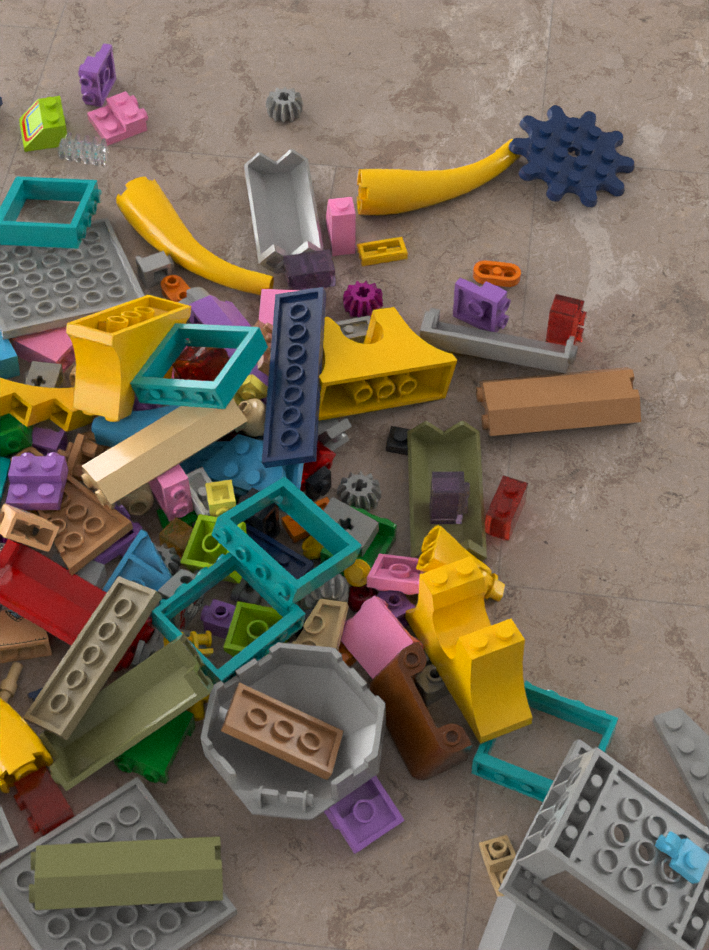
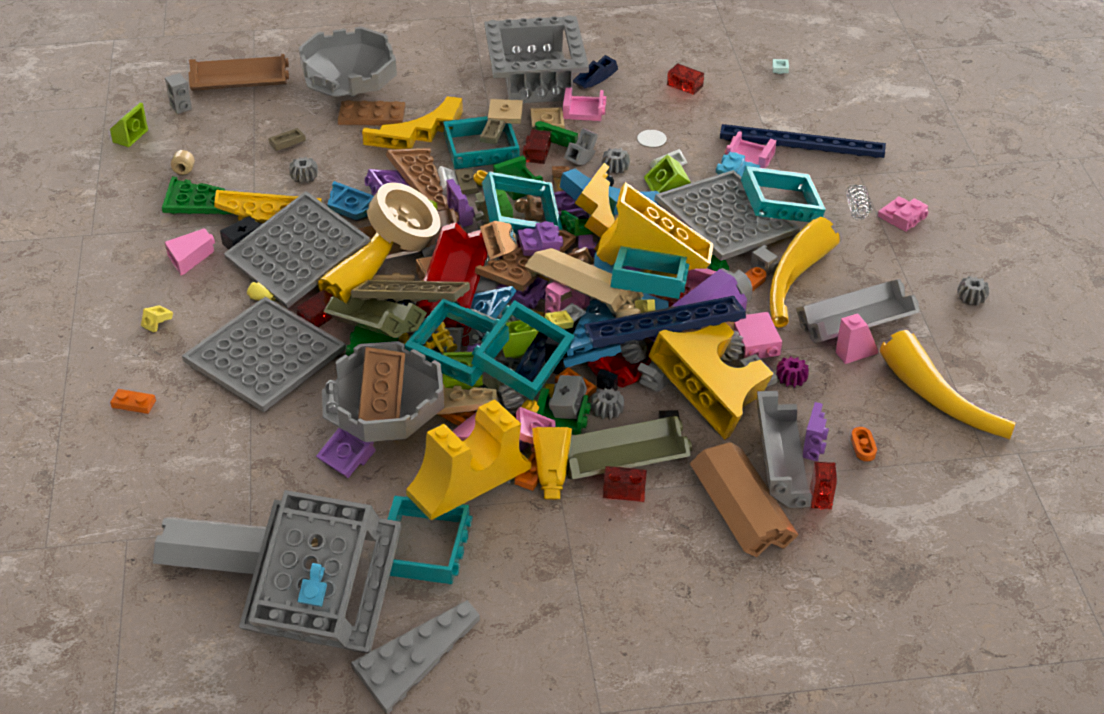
camera: 75 degrees right, 10 degrees down
(43, 124) = (876, 180): lime slope -> none
(97, 76) = (932, 187): medium lavender plate -> none
(126, 873) = (271, 347): olive panel -> none
(309, 270) = (803, 335): clear purple brick -> none
(383, 251) = (850, 376): yellow tile -> none
(418, 740) = (408, 456): reddish brown windscreen -> none
(448, 497) = (612, 442): brick -> none
(582, 175) = (1022, 487): dark blue plate -> none

